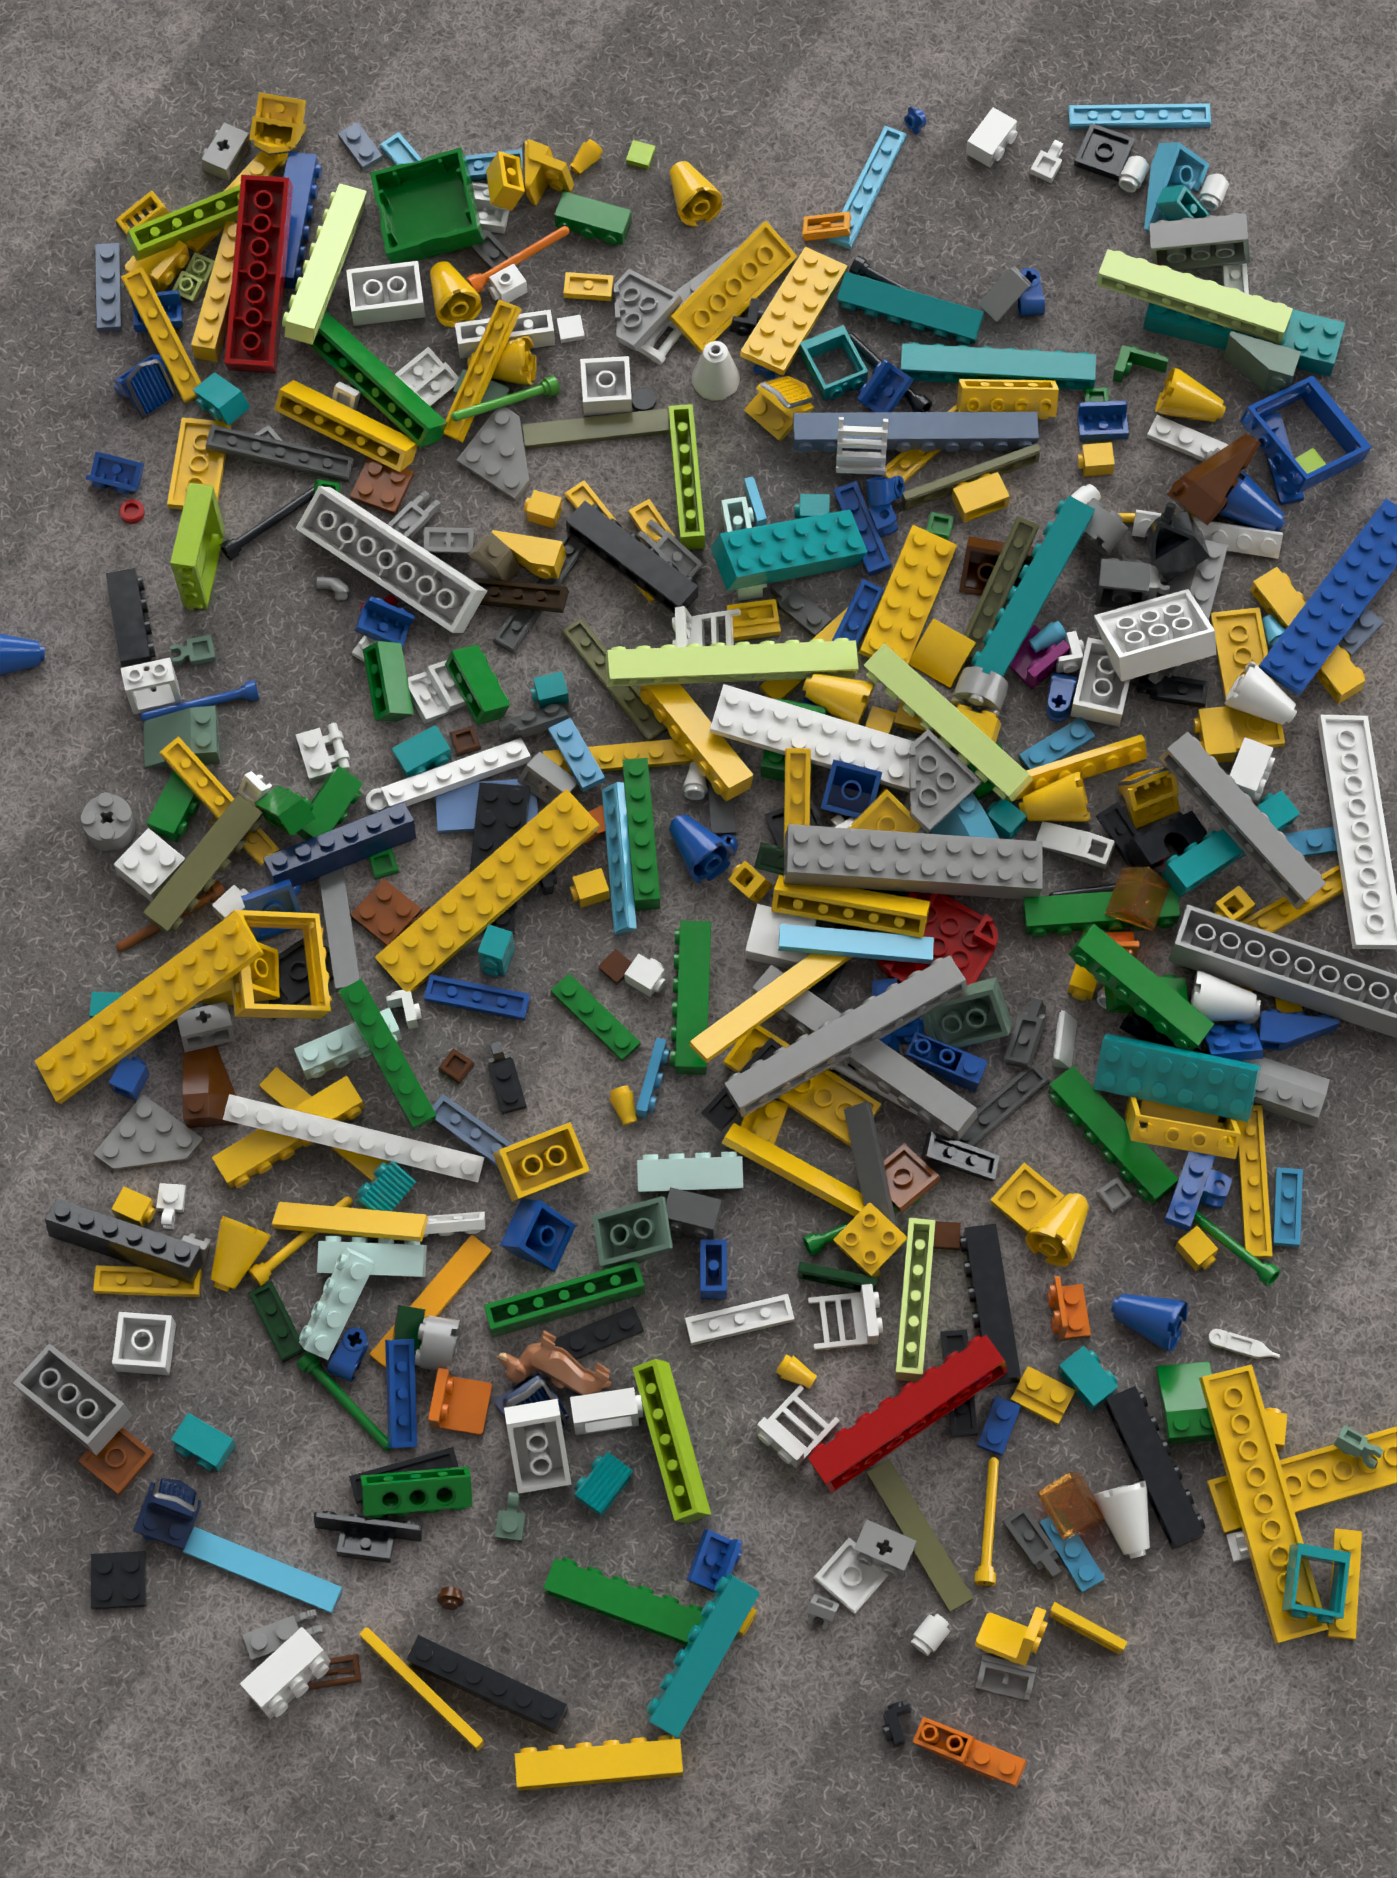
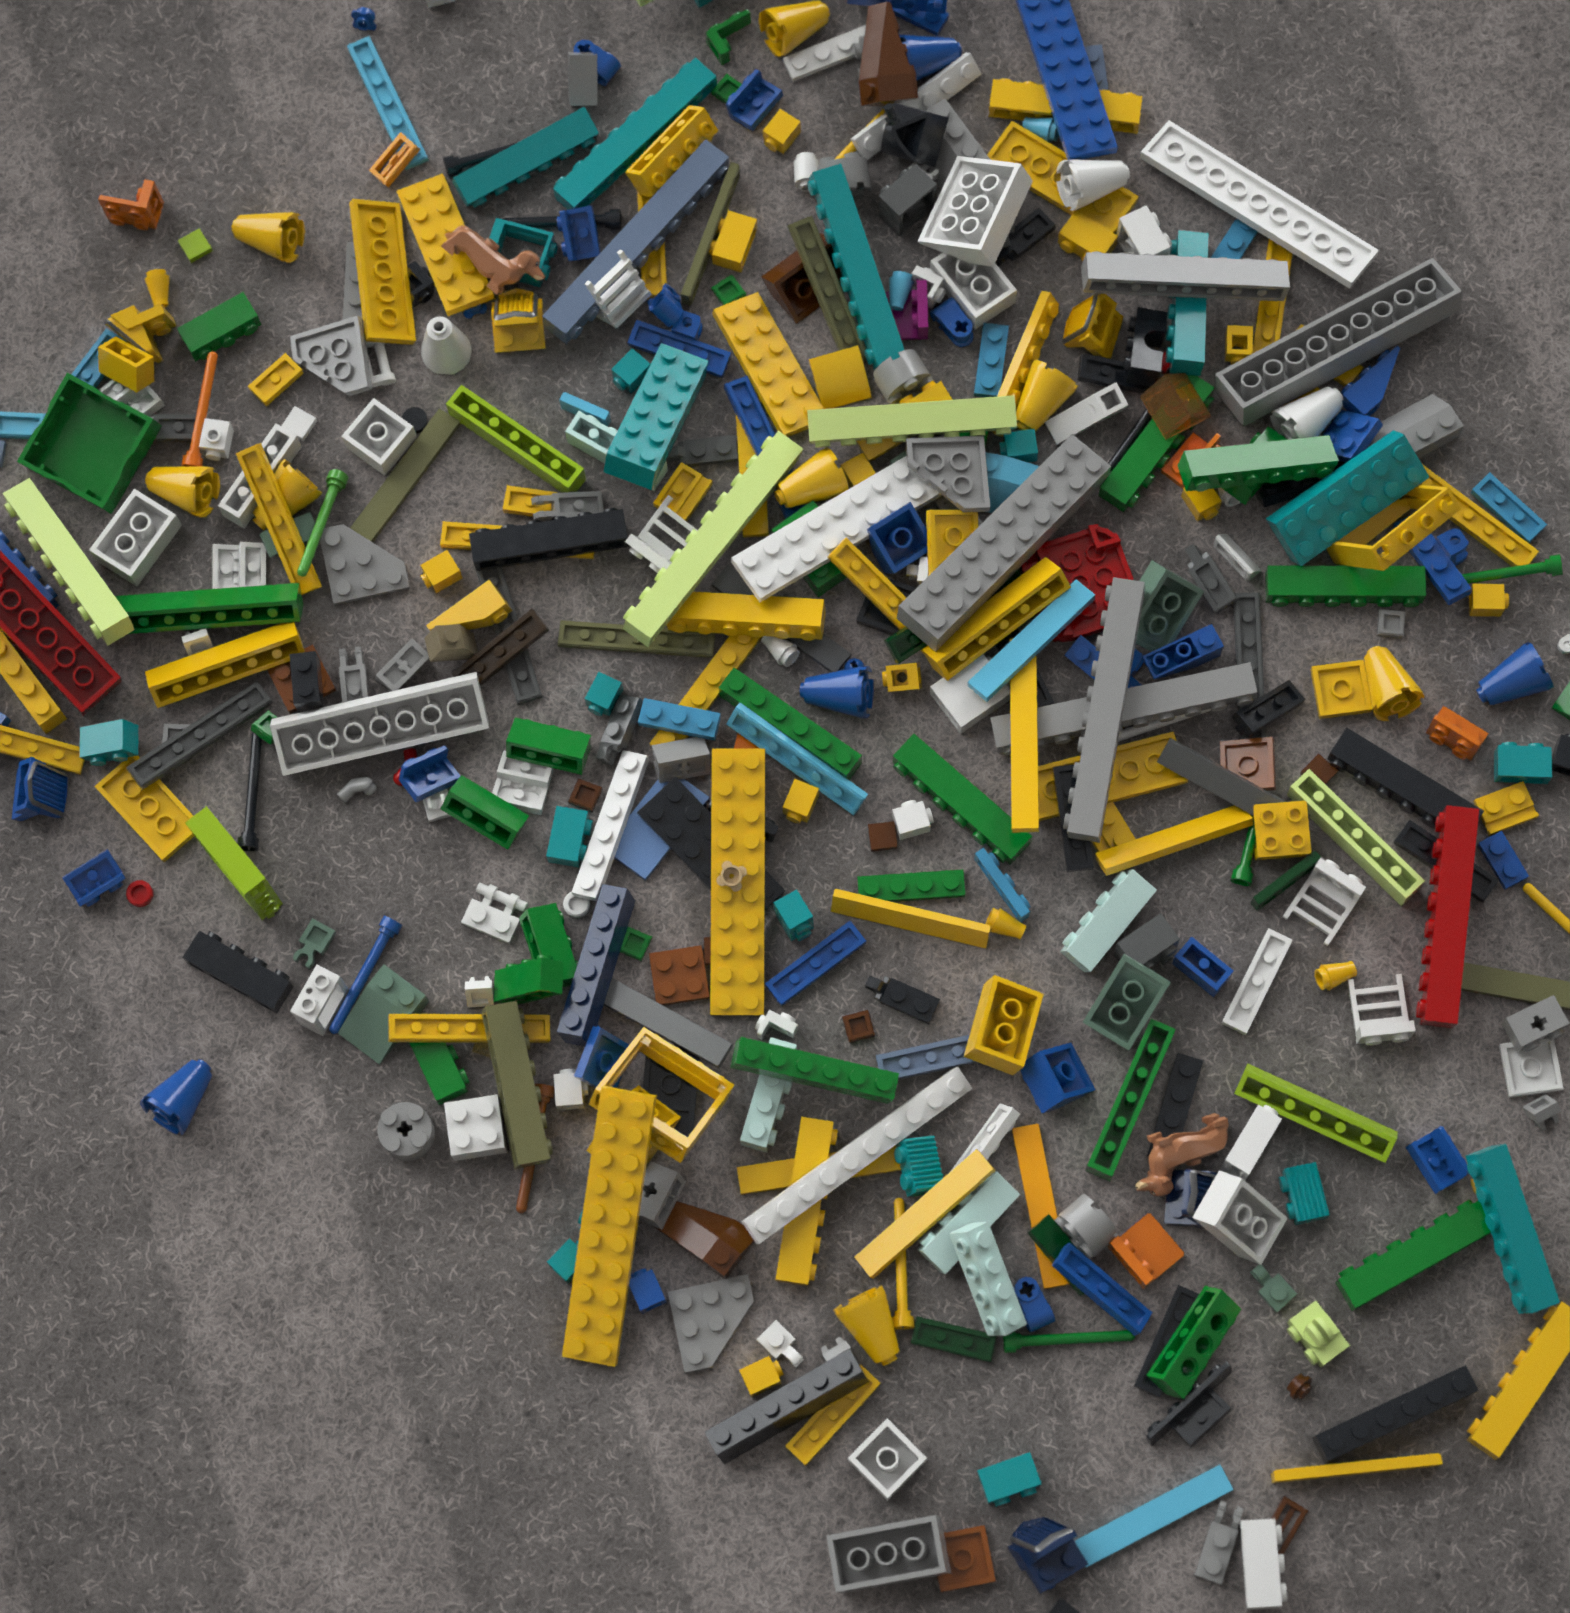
camera: 45 degrees left, 5 degrees up
(378, 486) = (306, 681): none -> black brick
(478, 876) = (727, 869): none -> tan plate
(501, 1579) = (1317, 1334): none -> yellowish green brick
(569, 1035) = (910, 918): none -> yellow tile
(632, 99) = (141, 214): none -> orange bracket
(803, 346) = (489, 261): none -> nougat animal

